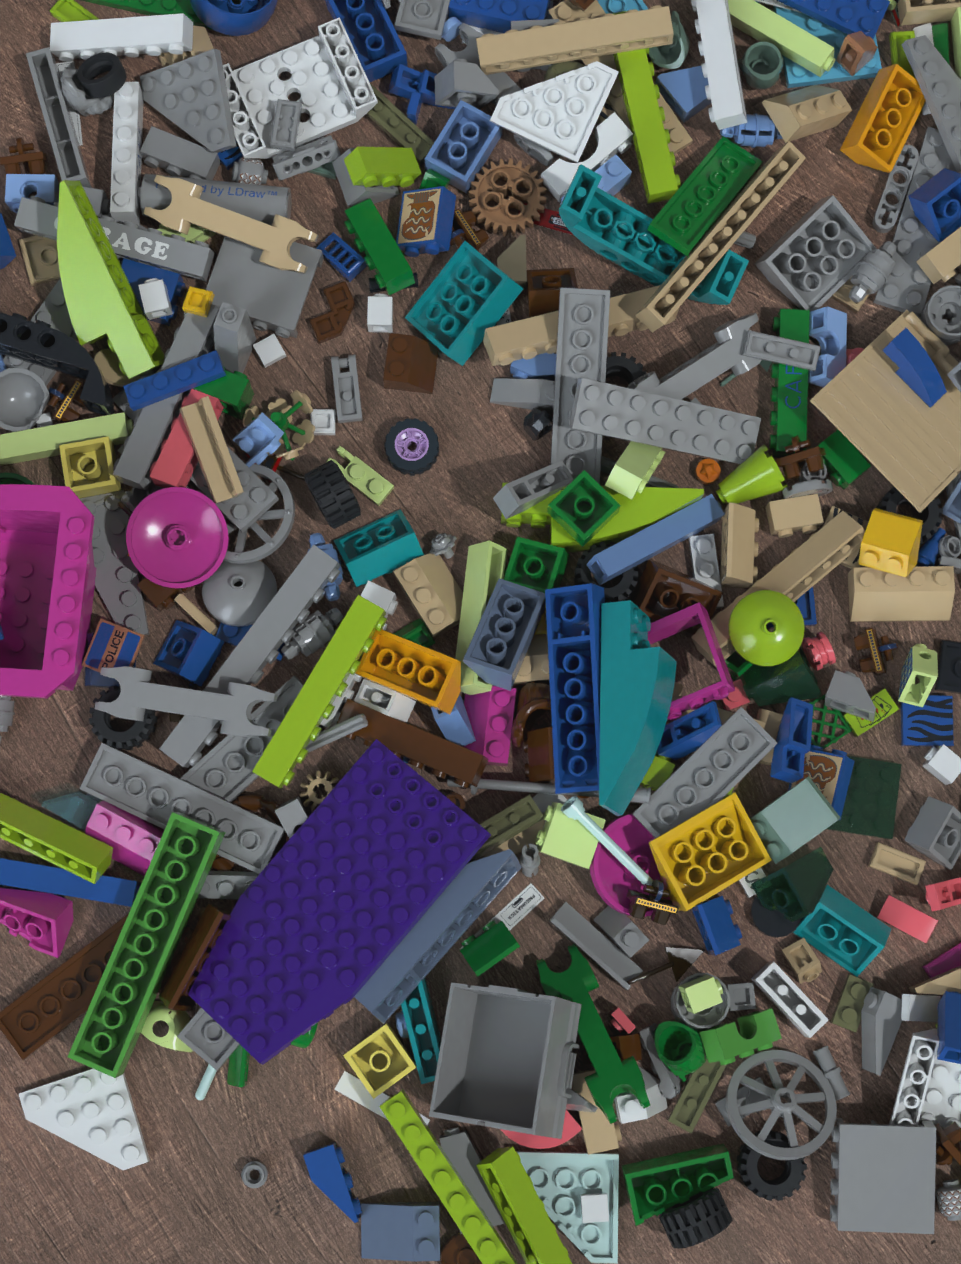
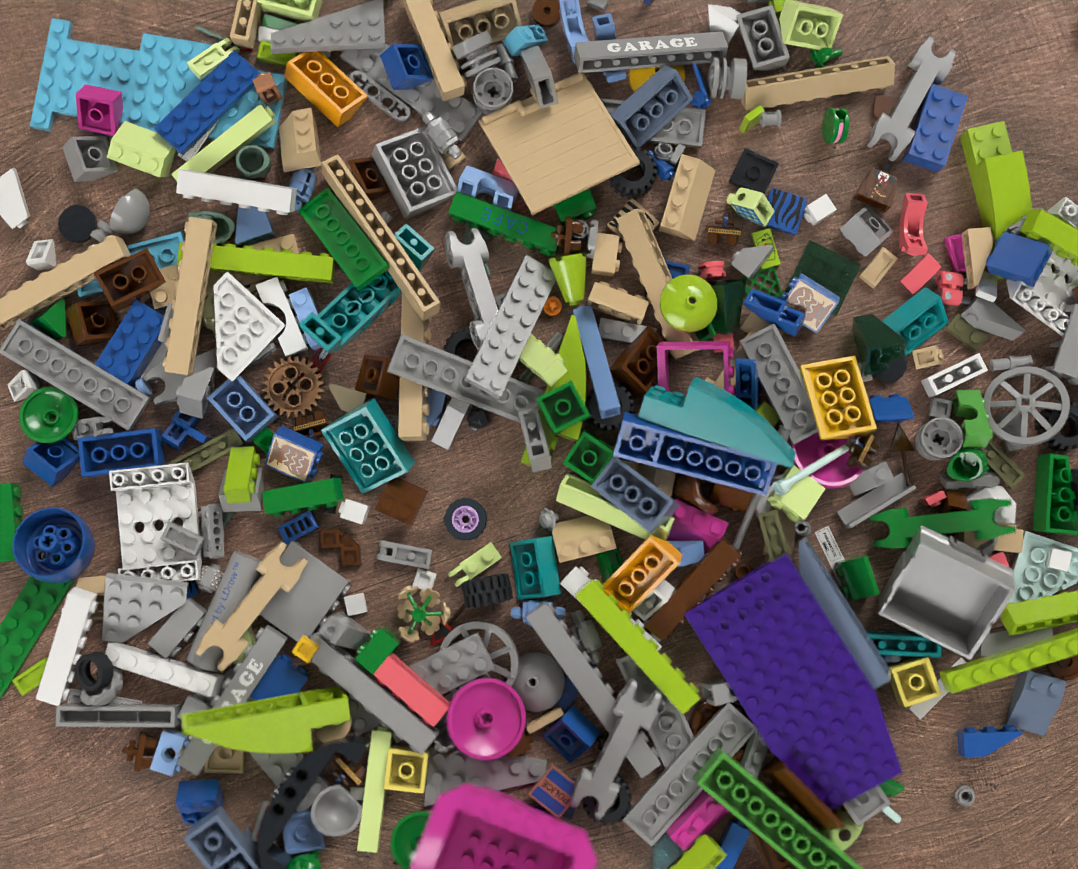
camera: 70 degrees left, 5 degrees up
(155, 298) = (291, 681): white brick -> none
(174, 380) = (364, 685): blue plate -> none
(211, 450) = (429, 673): tan fence -> none
(258, 439) = (428, 633): light blue bracket -> none
(313, 797) = (703, 673): tan gear -> none
(338, 731) = (668, 639): light grey axle -> none
(701, 993) = (939, 437): yellowish green brick -> none
(781, 350) = (482, 222): light grey tile -> none
(790, 204) = (369, 177): none -> reddish brown slope
(793, 819) = (831, 331): sand green slope -> none
(891, 543) = (652, 192): yellow slope -> none
(901, 962) = (949, 286): none -> coral piece
(916, 367) = (528, 129): blue slope -> none

